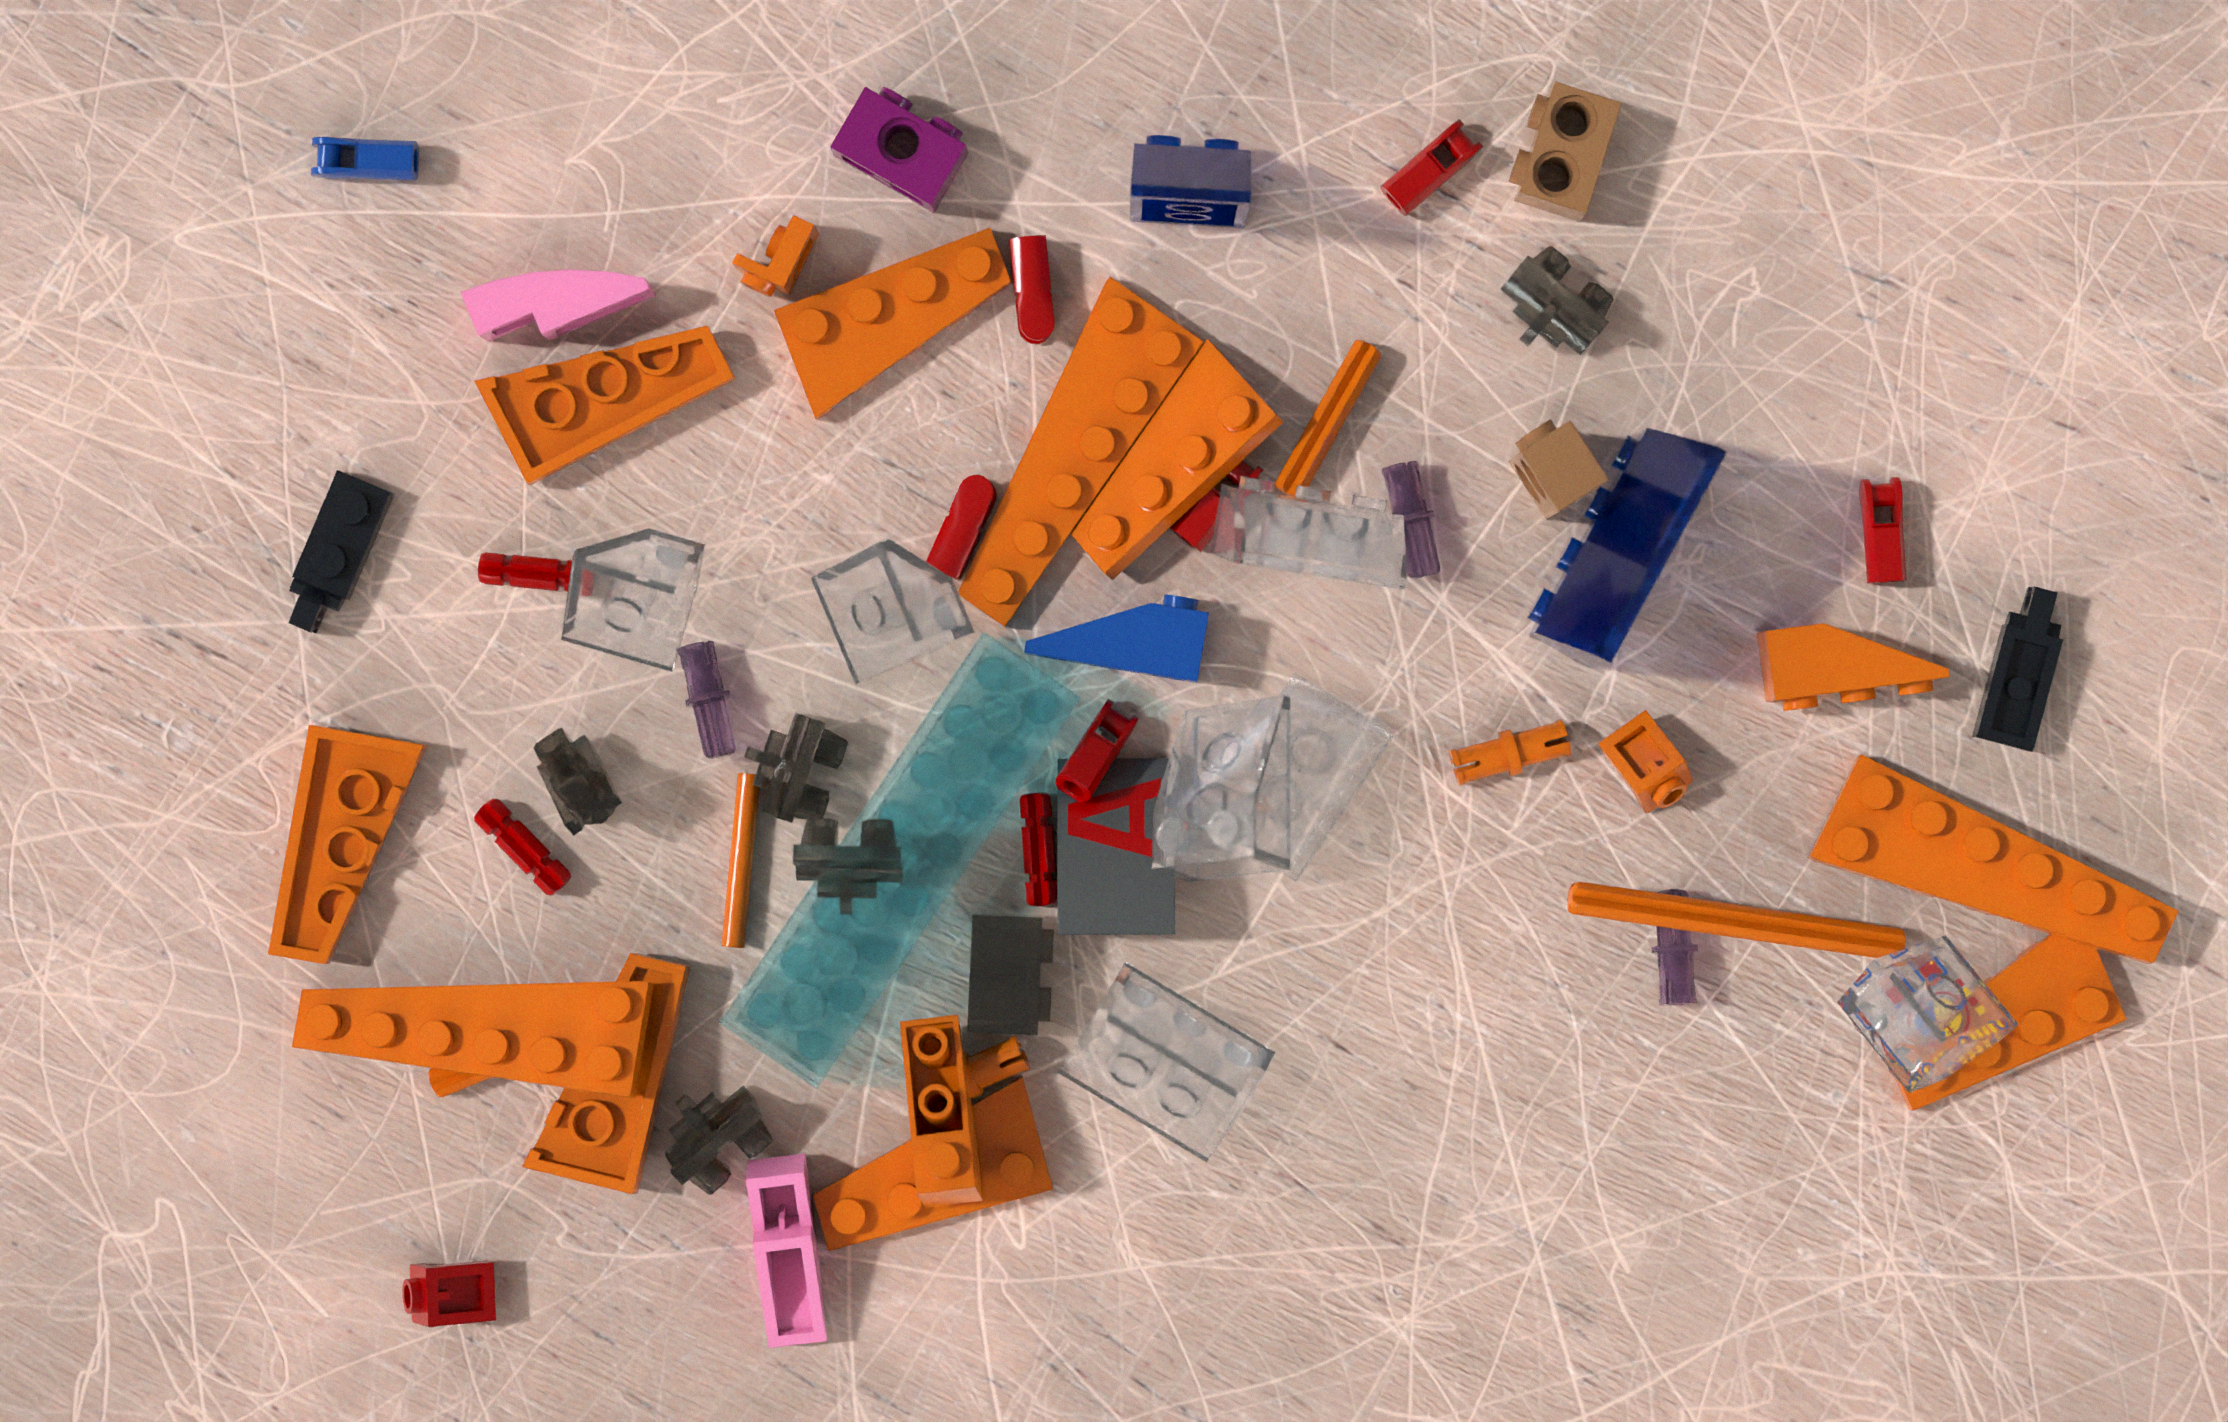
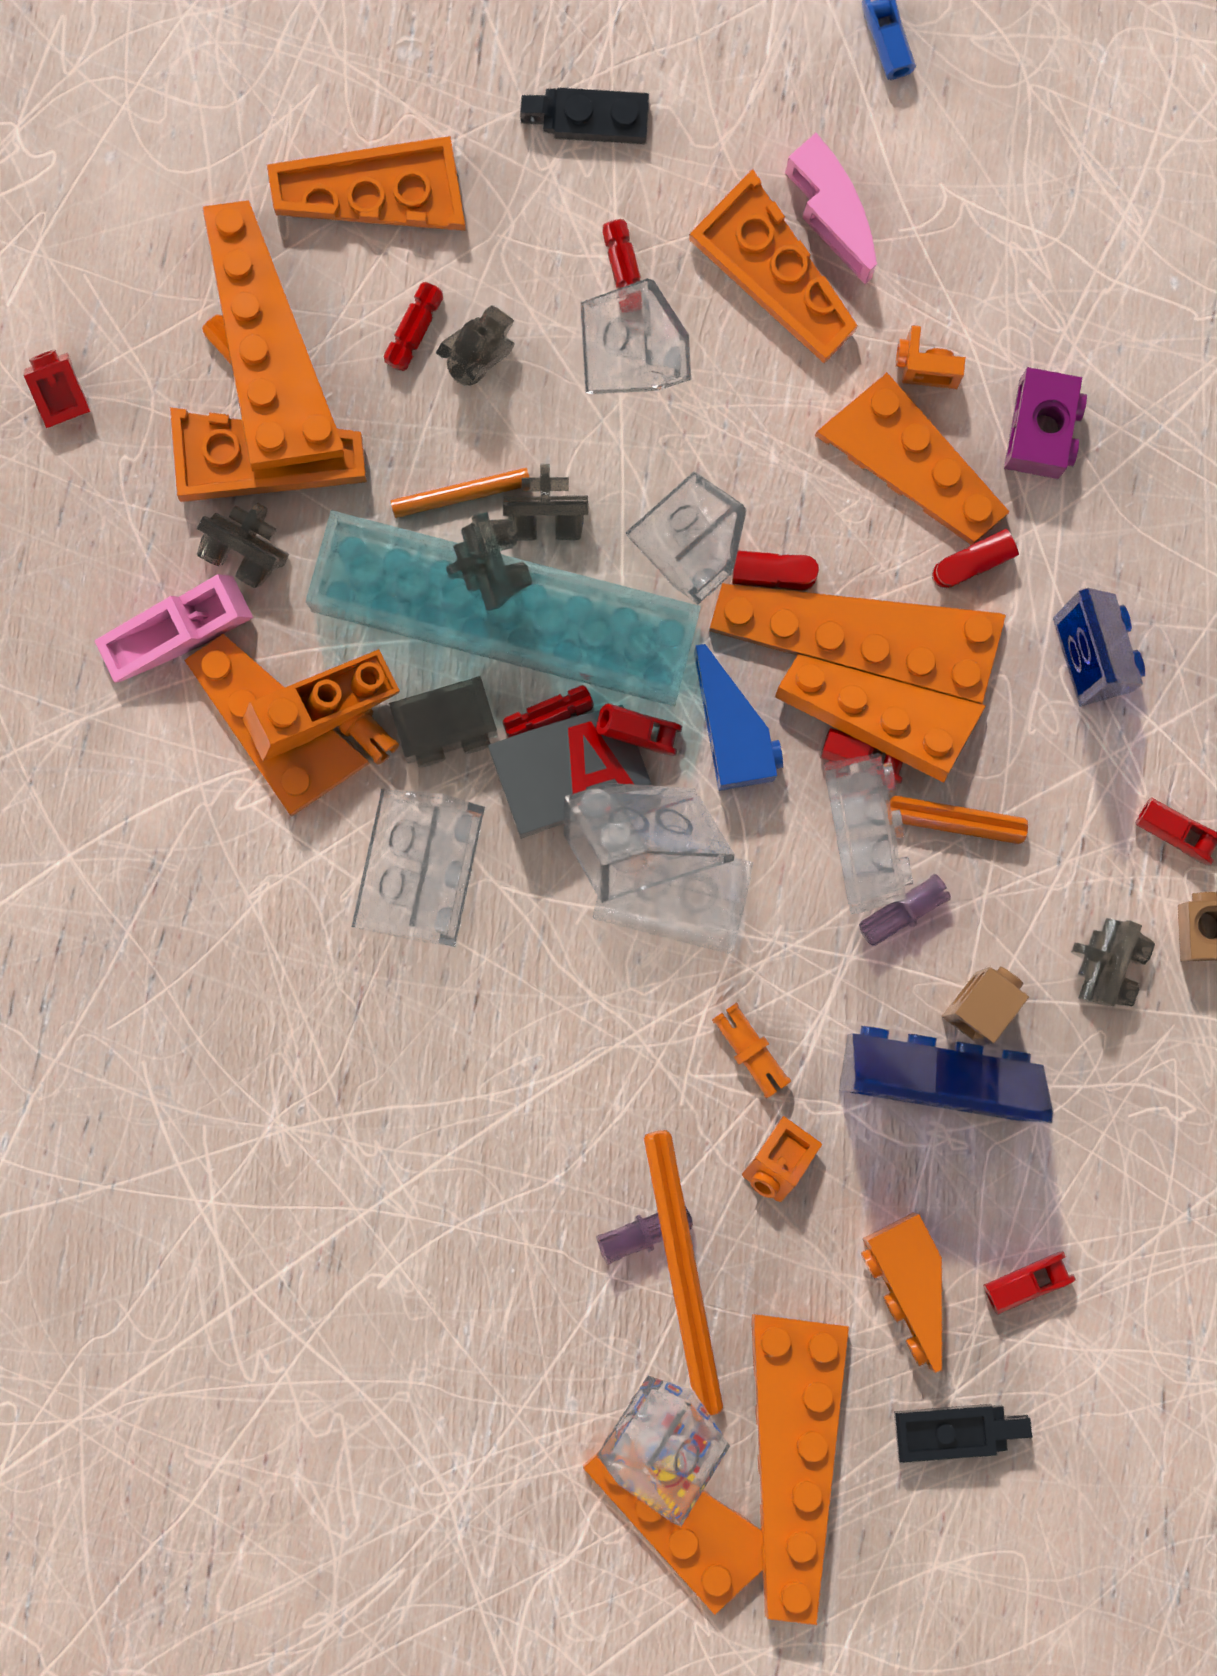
camera: 60 degrees right, 5 degrees down
(707, 698) = (574, 424): clear purple axle -> none

